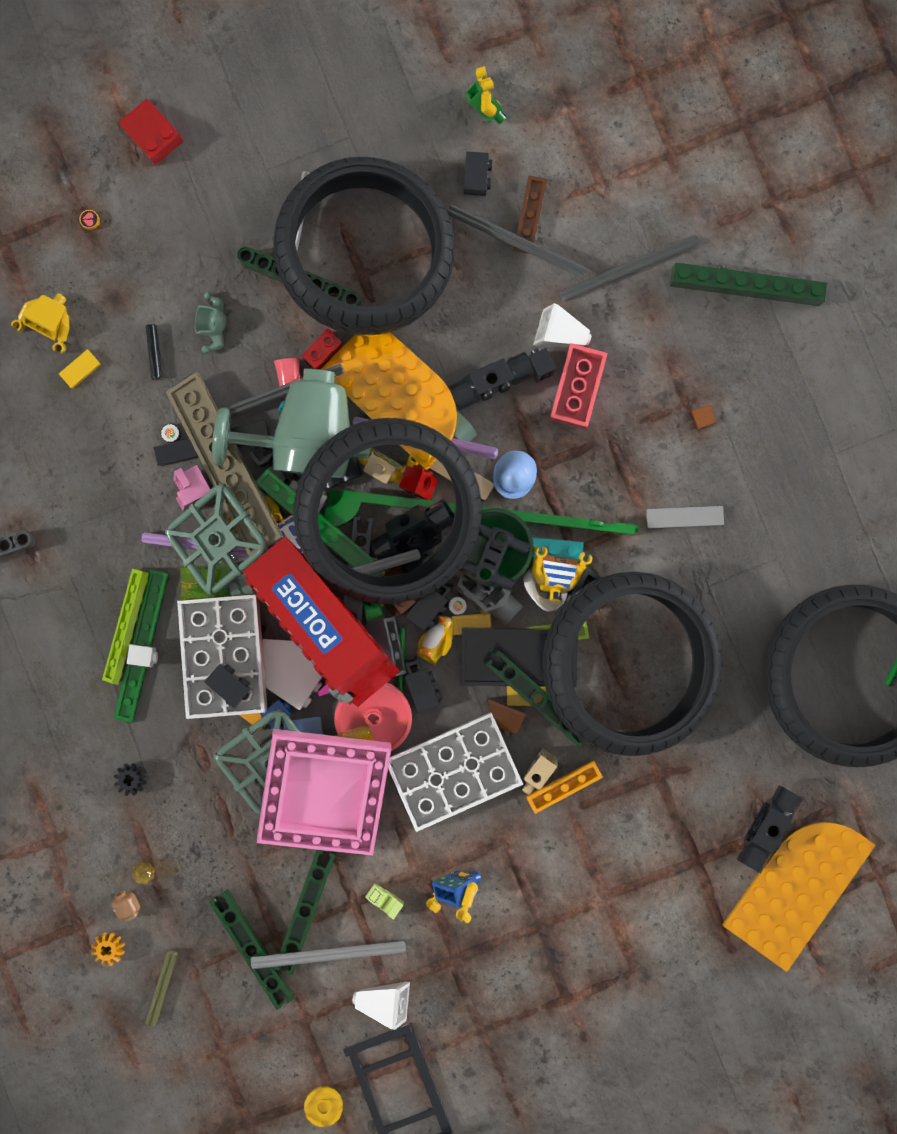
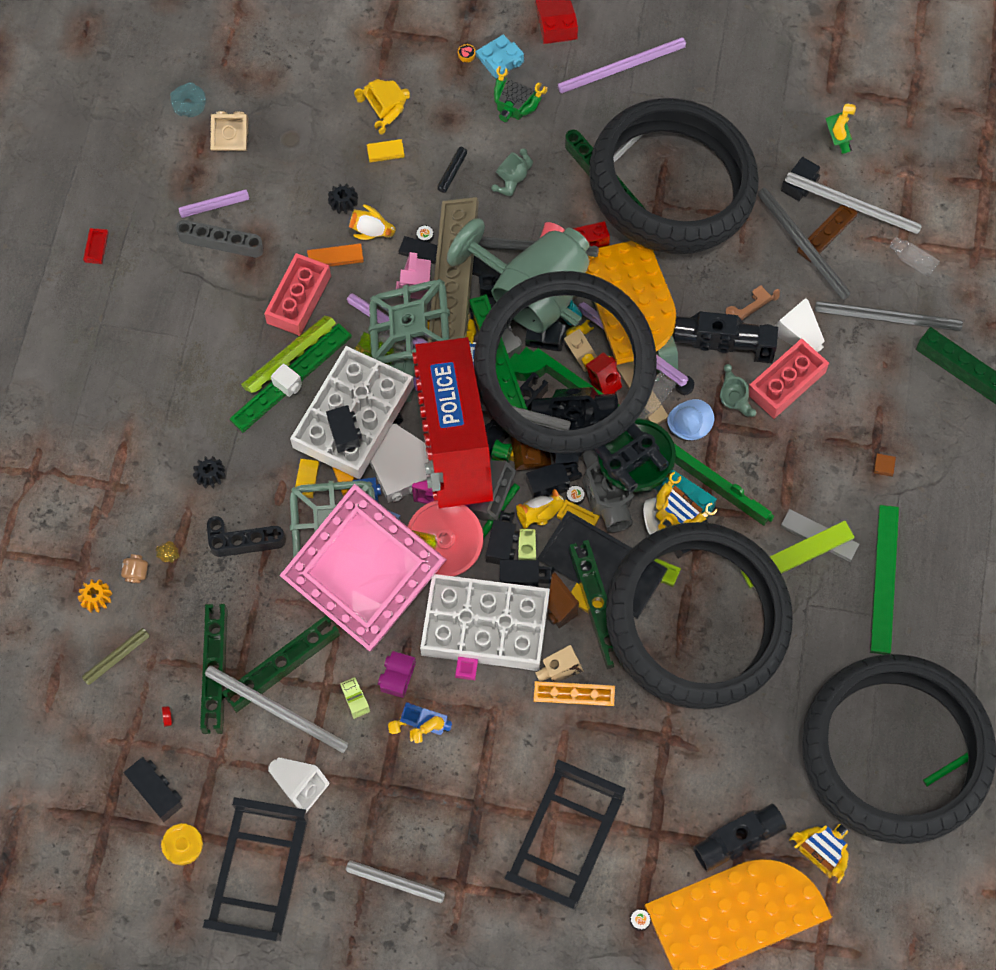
camera: 35 degrees right, 20 degrees down
(79, 447) = (343, 198): none -> black gear
(96, 565) = (297, 294): none -> coral brick
(103, 504) = (338, 255): none -> orange tile
(116, 456) = (370, 224): none -> animal
(123, 204) = (500, 53): none -> medium azure plate
(165, 244) = (515, 99): none -> torso
(203, 819) = (246, 536): none -> black beam
(217, 731) = (307, 474): none -> yellow tile
(240, 1013) = (166, 716): none -> red tile
(242, 147) = (621, 65): none -> lavender axle
(270, 1079) = (154, 788): none -> black brick
(408, 859) = (397, 674): none -> magenta brick
(446, 679) = (527, 545): none -> yellowish green leg
(458, 707) = (524, 572): none -> black brick
(463, 821) = (466, 668): none -> dark pink tile
(491, 440) = (686, 389): none -> black tile
(510, 317) = (761, 296): none -> nougat piece
(514, 1030) = (395, 881): none -> light grey axle
(537, 172) = (853, 202): none -> light grey axle
(540, 428) = (736, 393): none -> sand green piece
(620, 193) = (914, 256): none -> clear hinge
(636, 968) = (590, 781): none -> black piece
(683, 538) = (809, 548): none -> lime tile
(726, 939) = (640, 920): none -> tile
(760, 524) = (884, 580): none -> green tile
(841, 794) = (824, 848): none -> torso

